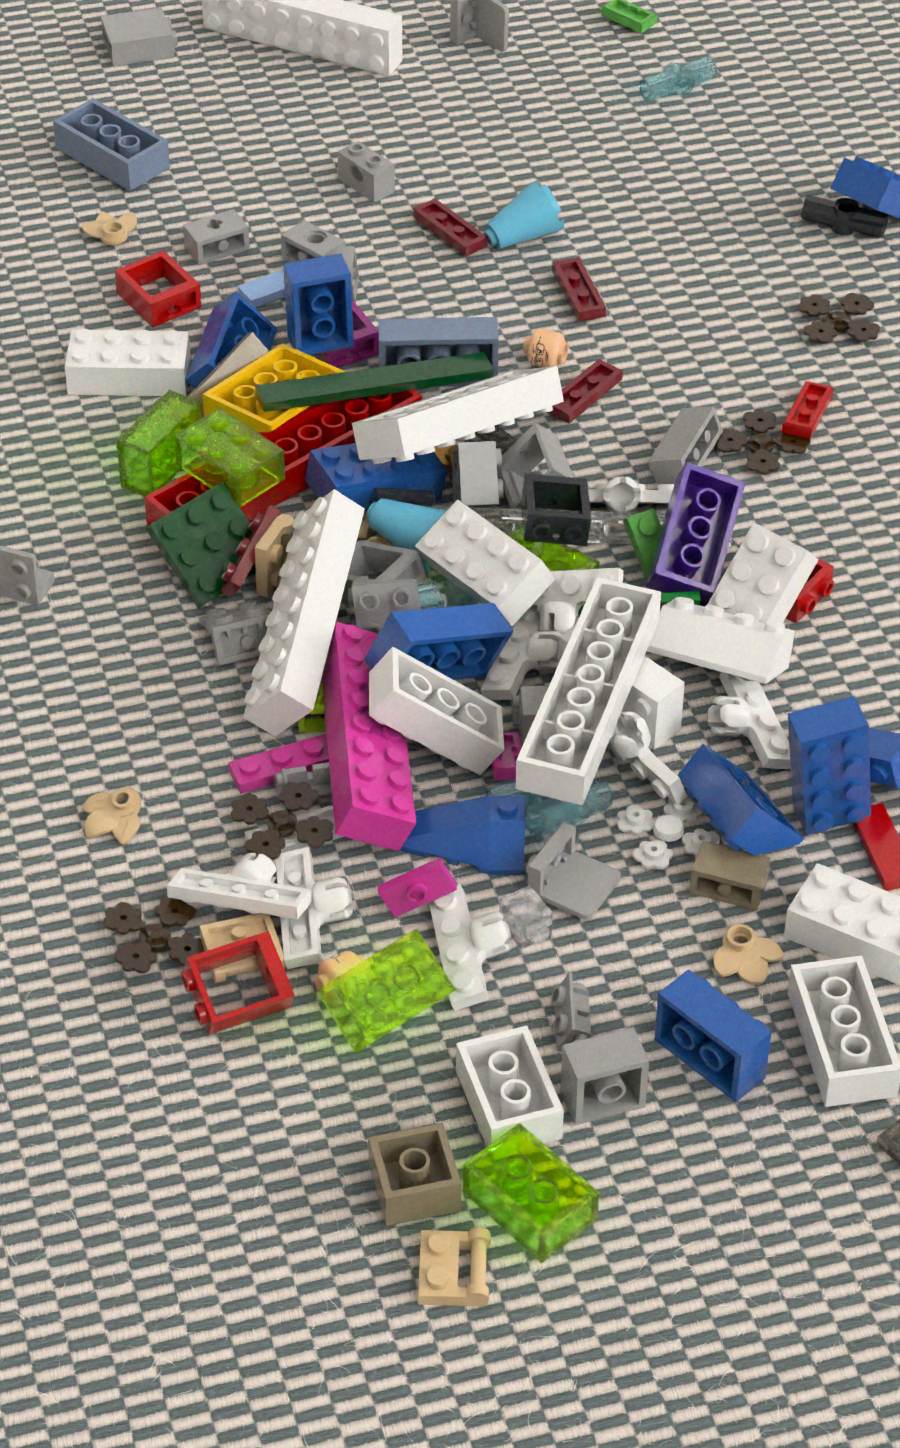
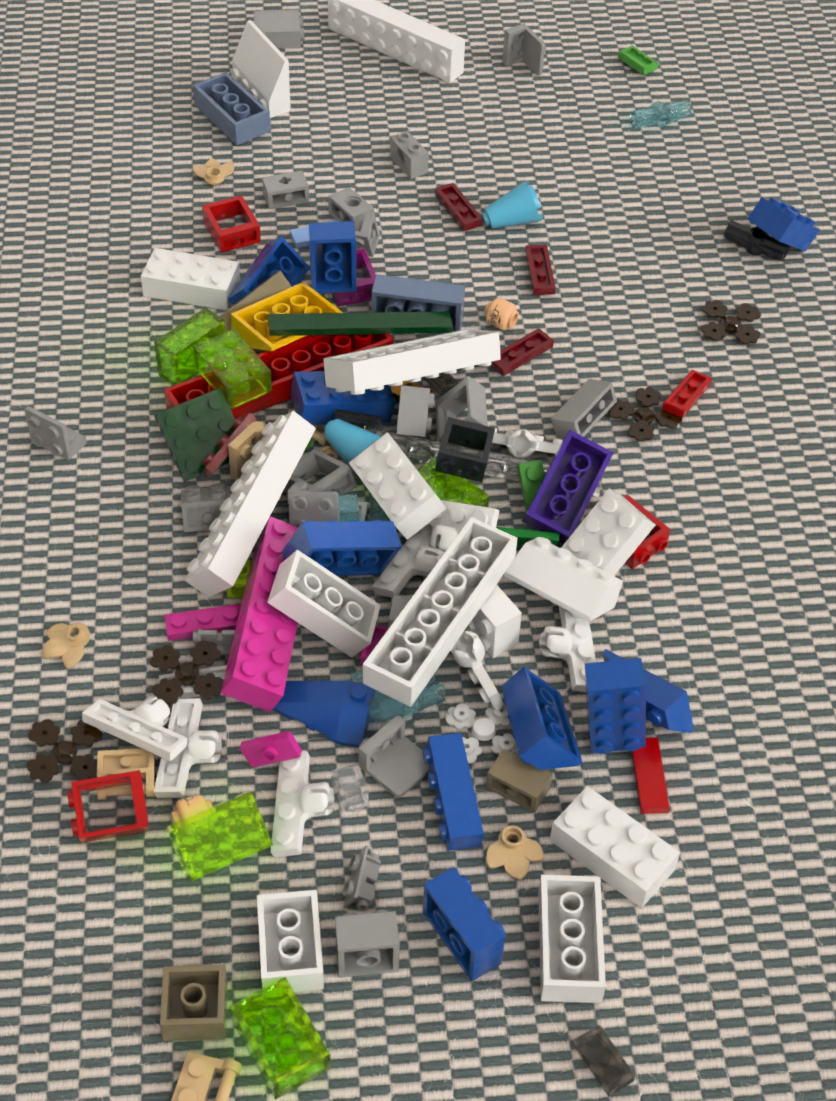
camera: 10 degrees right, 5 degrees up
(141, 86) = (262, 70): none -> white slope
(655, 898) = (453, 791): none -> blue brick

